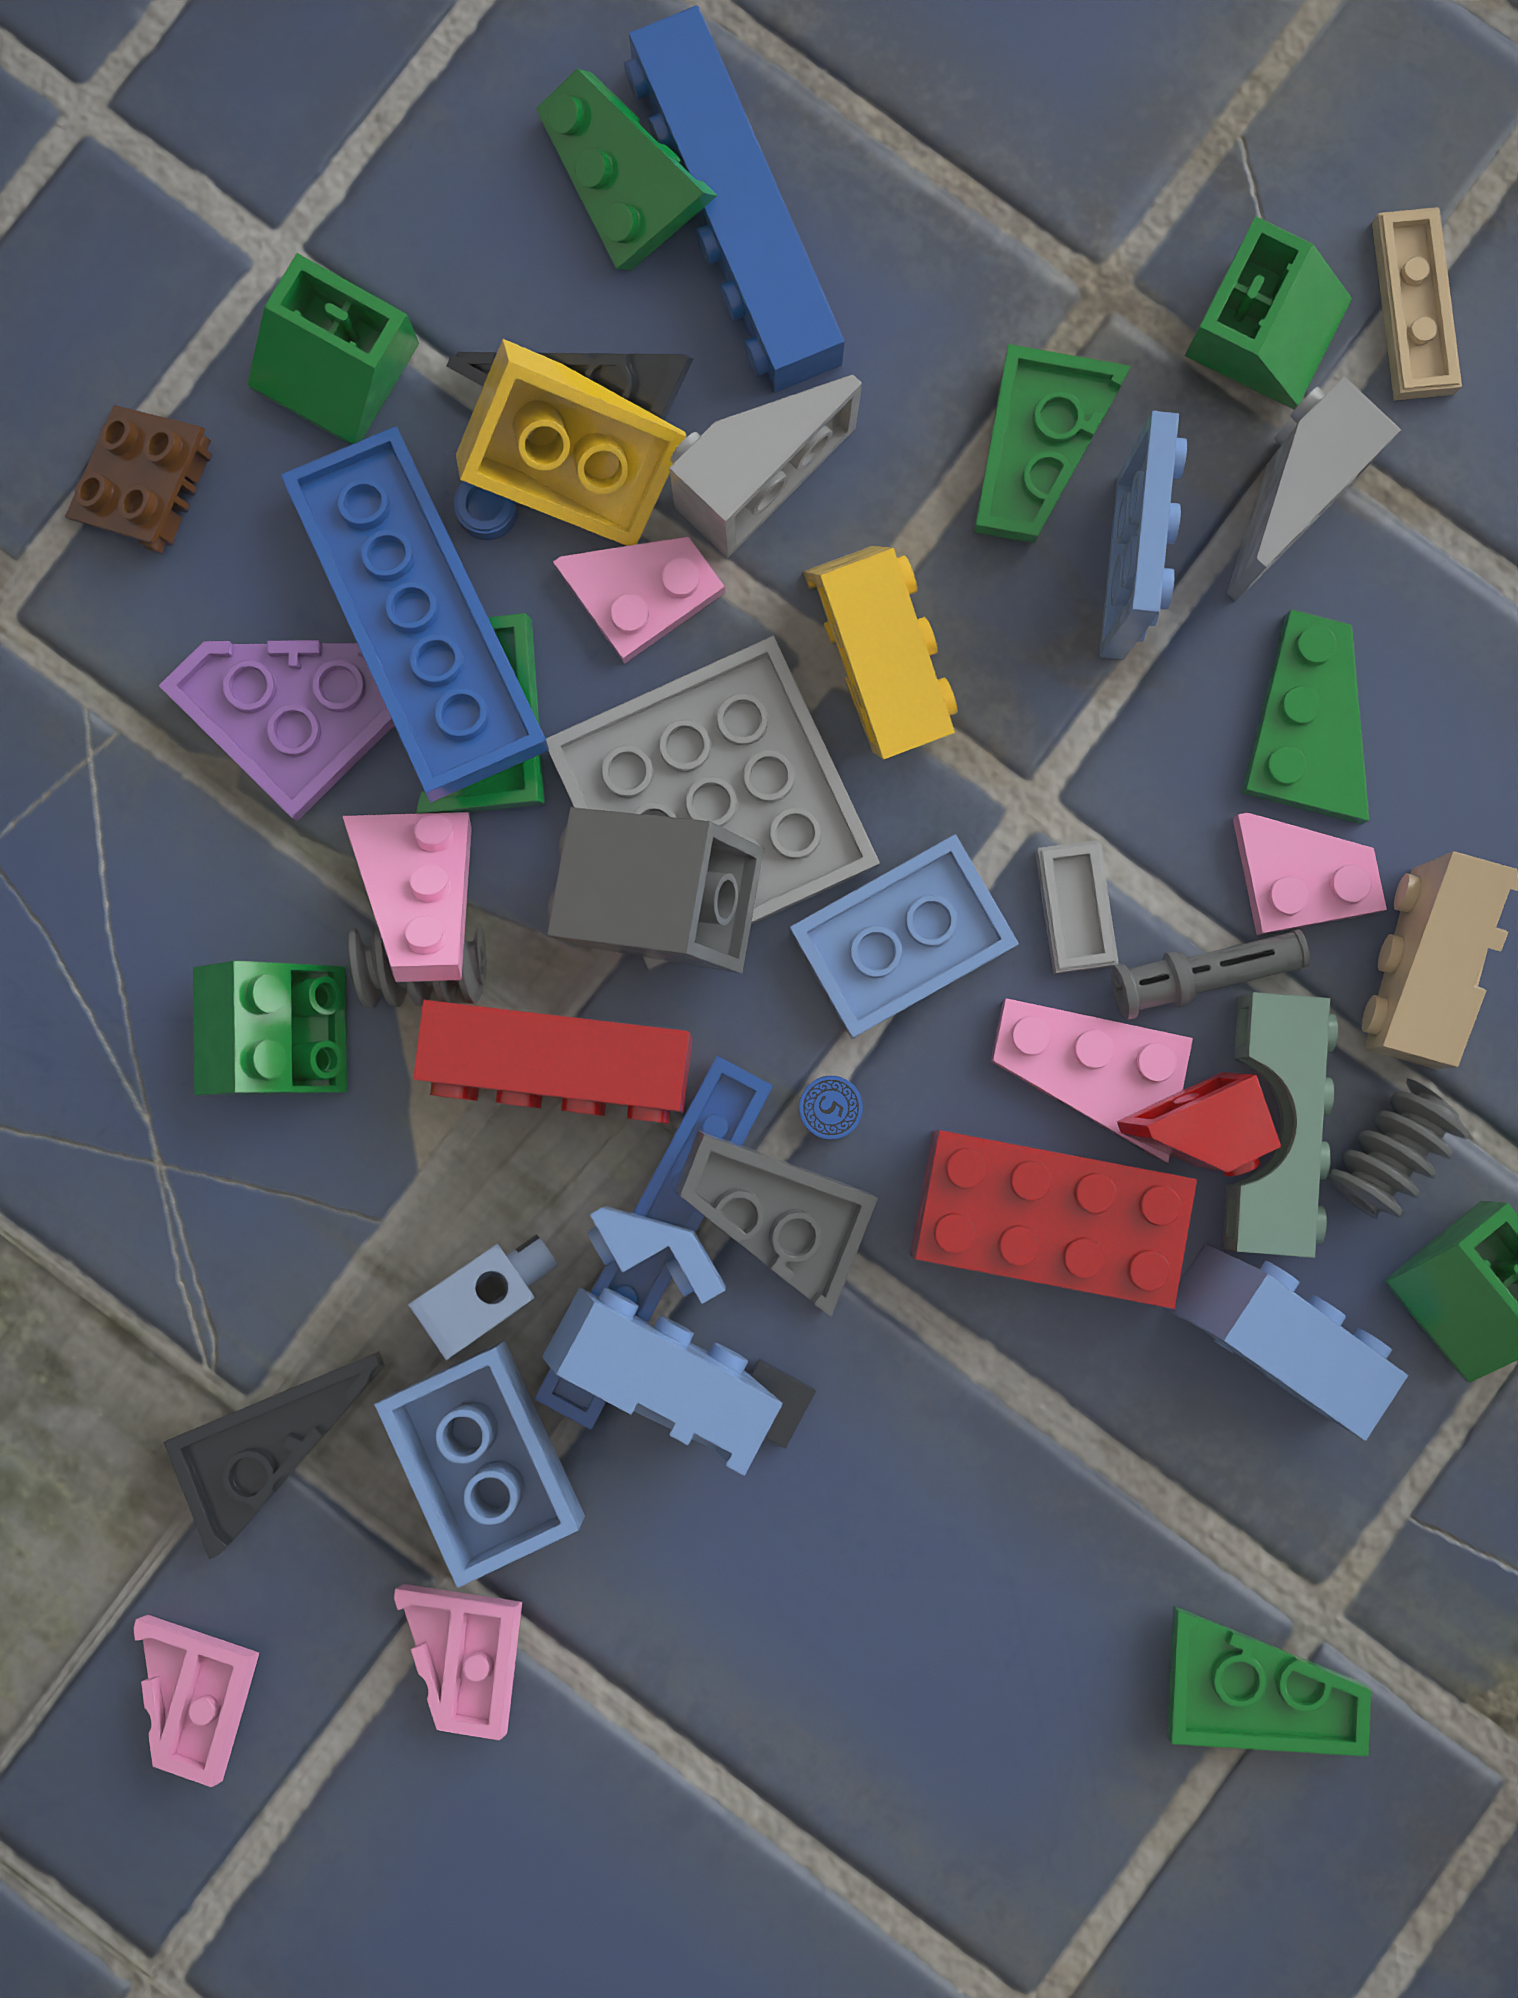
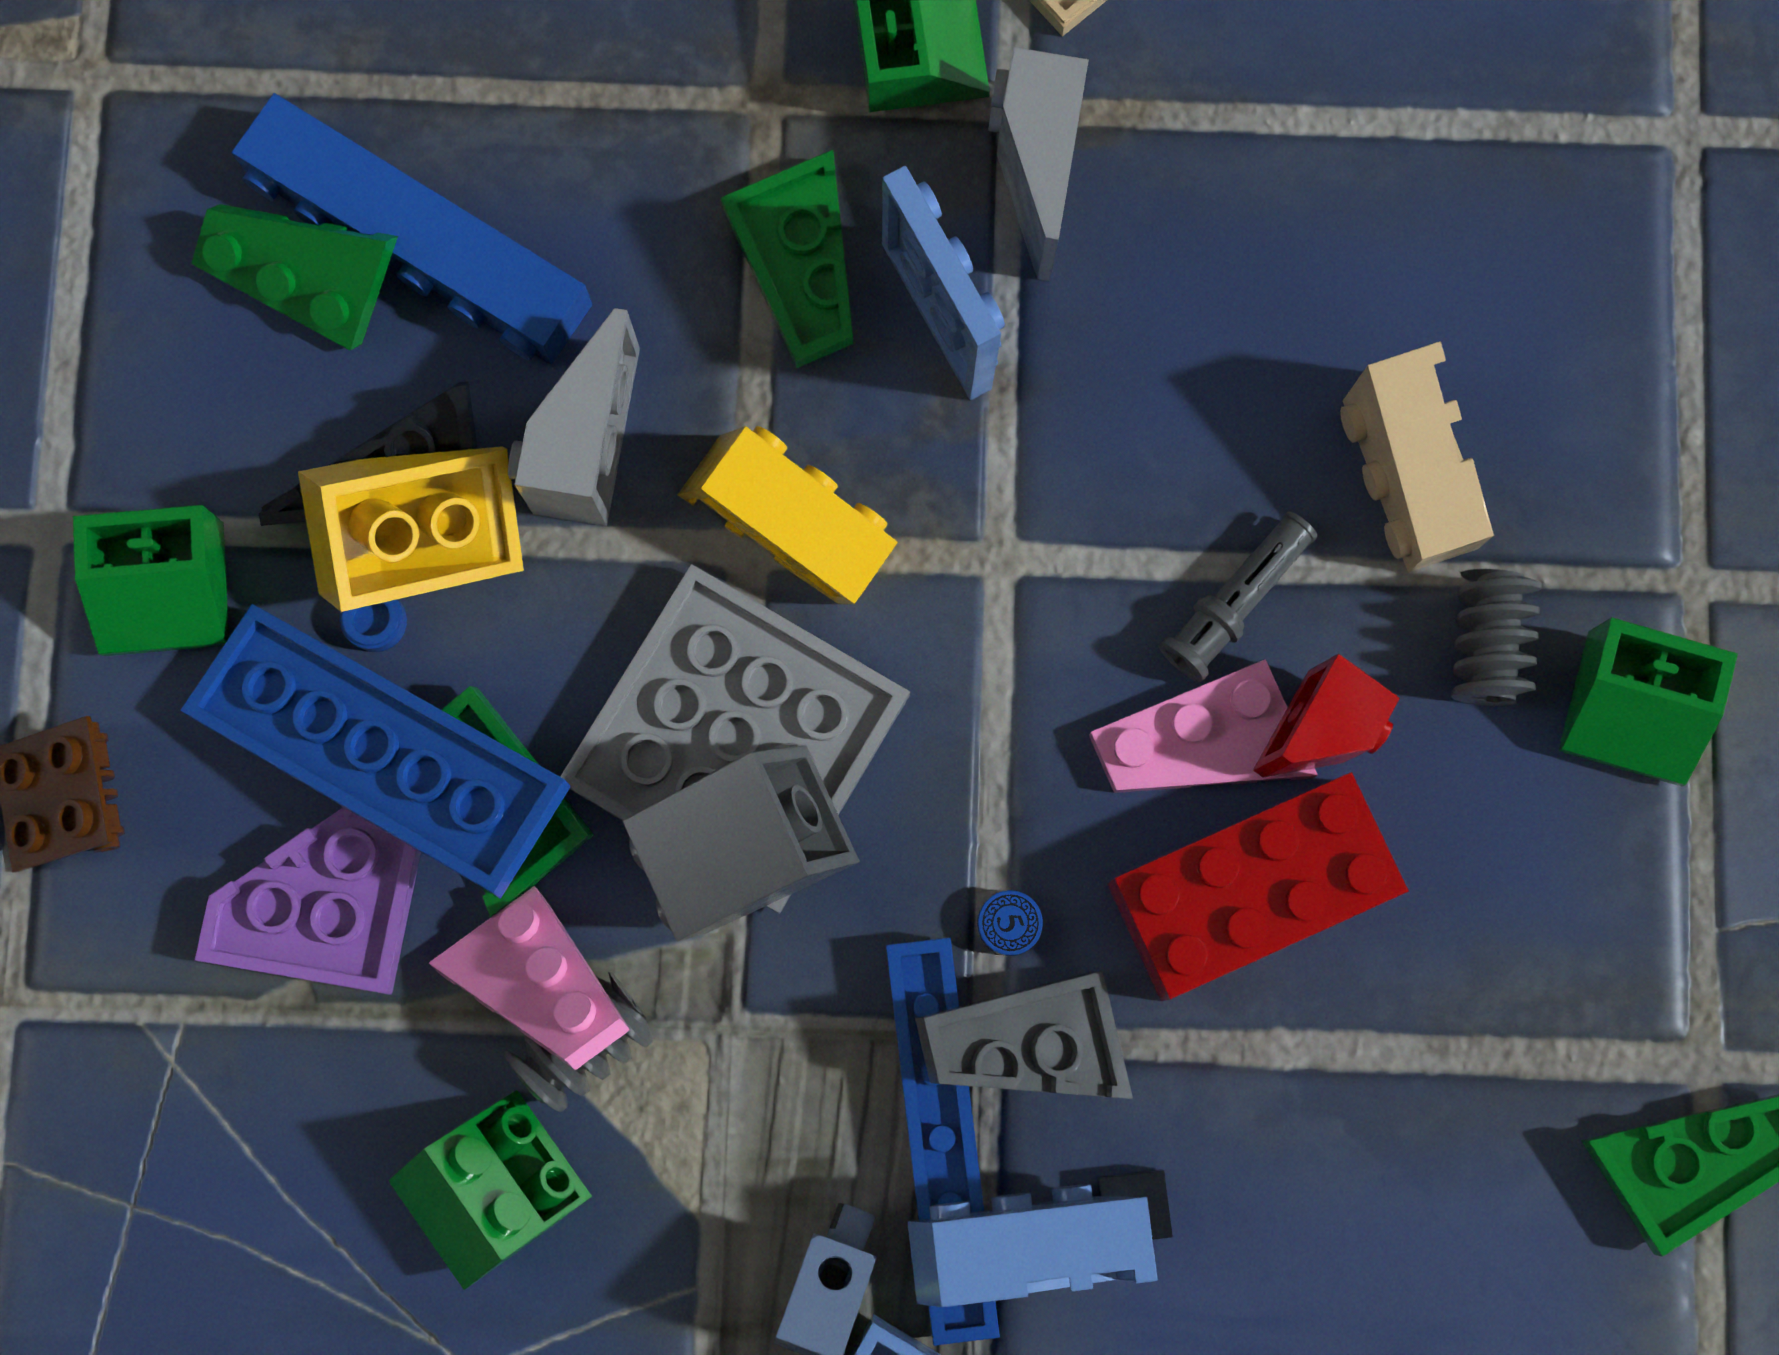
camera: 35 degrees left, 5 degrees down
(552, 1057) = (751, 1042): red brick -> none
(633, 1238) = (926, 1146): medium blue slope -> none
(640, 590) = (552, 601): bright pink wing -> none
(903, 936) = (971, 739): medium blue plate -> none
(1076, 907) = (1095, 617): light grey tile -> none
(1288, 1047) = (1430, 746): sand green arch -> none
(1290, 1338) = (1518, 850): medium blue wedge -> none
(1304, 875) = (1261, 465): bright pink wing -> none
(1310, 723) = (1179, 339): green wing -> none

